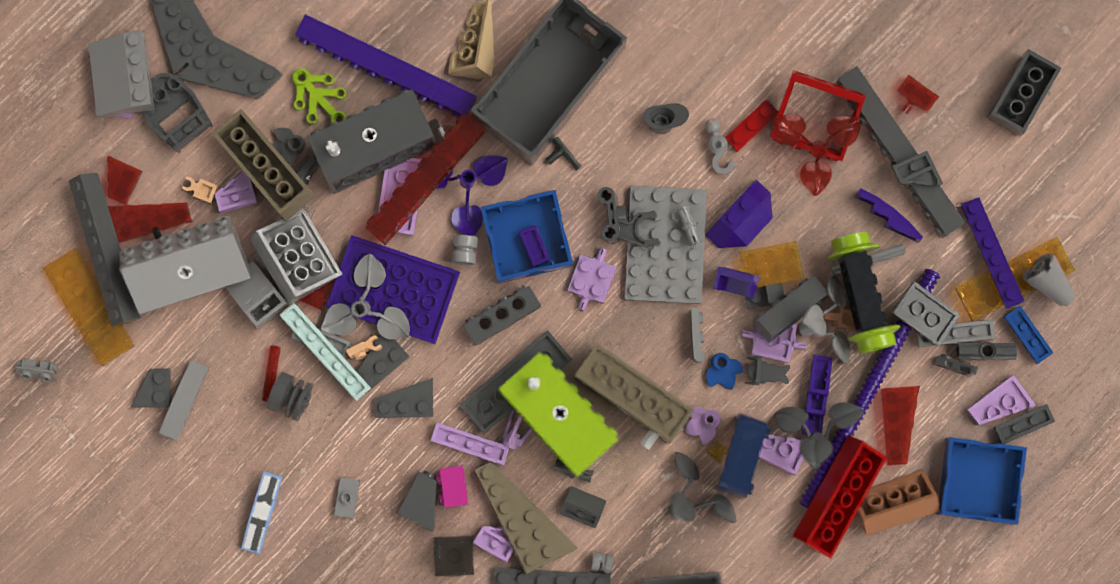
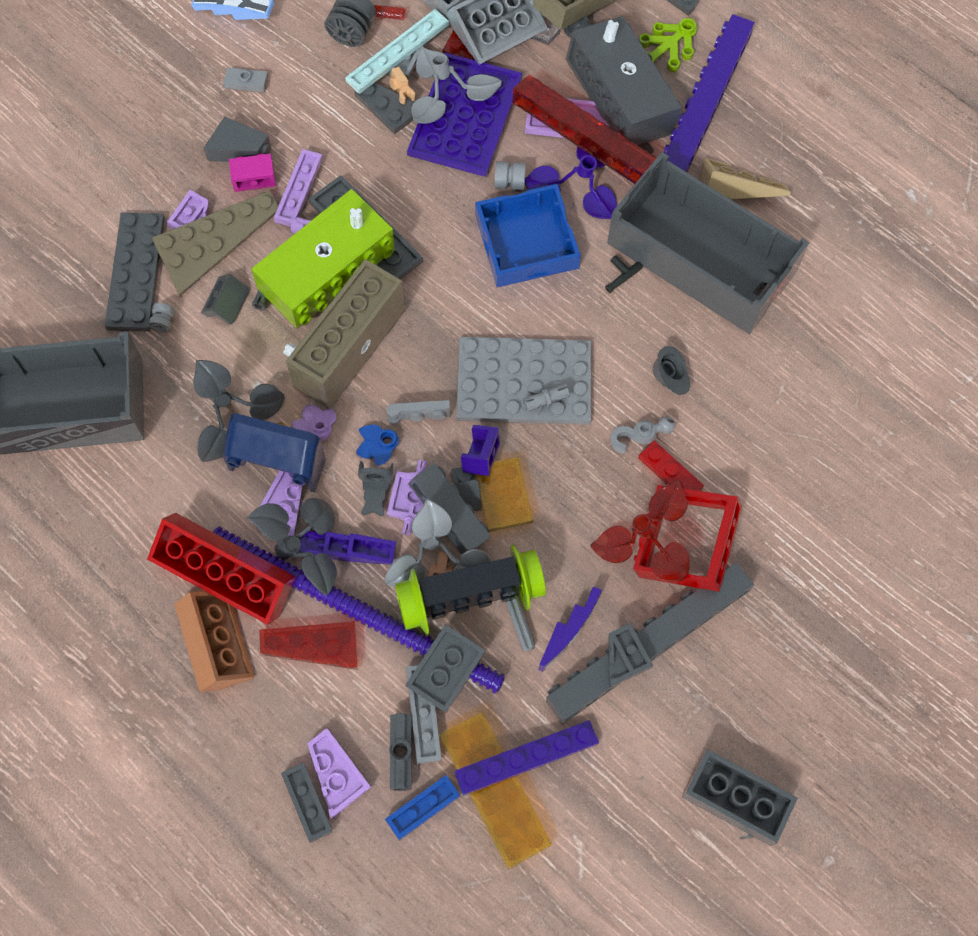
camera: 90 degrees right, 15 degrees down
(285, 142) = (612, 12): dark grey plate -> none
(407, 402) = (345, 132): dark grey wing -> none
(453, 556) = (177, 174): clear smoke panel -> none
(530, 305) = (451, 240): dark grey brick -> none
(534, 245) = (517, 243): dark purple plate -> none
(592, 279) = (482, 304): lavender plate -> none
(619, 222) = (545, 327): dark grey piece -> none
(743, 219) = (560, 461): dark purple wedge -> none
(916, 95) = (724, 663): clear red plate -> none
(960, 367) = (385, 701): dark grey wing -> none
(982, 481) = (235, 746): blue tile -> none
(1050, 280) = (491, 829): light grey cone -> none

